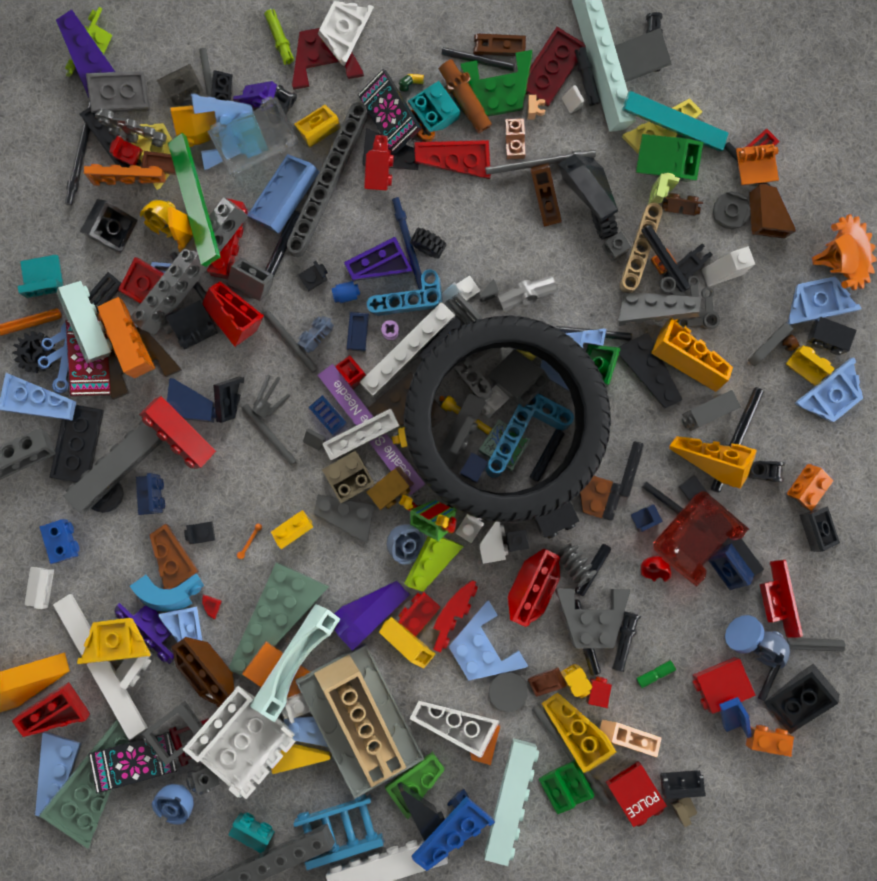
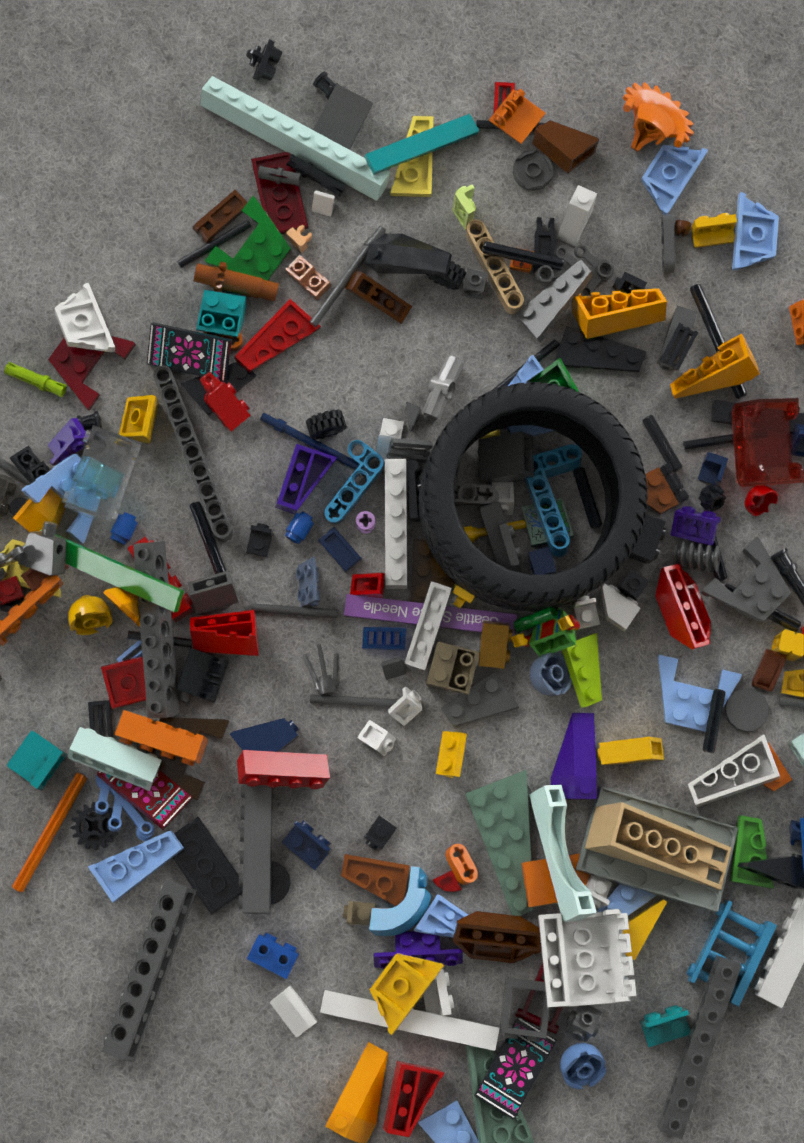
camera: 45 degrees left, 5 degrees down
(108, 225) = (50, 664): black slope -> none
(137, 567) = (358, 912): none -> dark tan bracket
(169, 148) = (45, 551): none -> dark grey torso
(226, 601) = (461, 864): none -> orange beam
(227, 399) = (292, 705): black wing -> none
(237, 184) = (123, 528): none -> blue brick
(241, 555) = (429, 818): orange hinge -> none
(258, 472) = (377, 738): none -> white bracket
(283, 193) = (167, 498): medium blue slope -> none
(296, 472) = (406, 707): none -> white bracket
(410, 79) = (176, 312): arm -> none
(419, 613) = (616, 719): red bracket -> none
(429, 497) = (533, 619): none -> green piece
(456, 606) = (638, 685): red slope -> none
(478, 677) = (714, 721): none -> black axle
(555, 44) = (293, 178): none -> dark grey pin
(596, 542) = (695, 525): none -> dark purple bracket
(626, 536) = (712, 497): none -> black gear
(669, 155) = (445, 174): green slope -> none
(689, 205) = (496, 196): reddish brown hinge -> none
(717, 344) = (628, 283): none -> black bracket
(720, 412) = (687, 331): none -> black tile
(767, 471) = (766, 341): black piece -> none
(831, 336) = (707, 192): black brick -> none

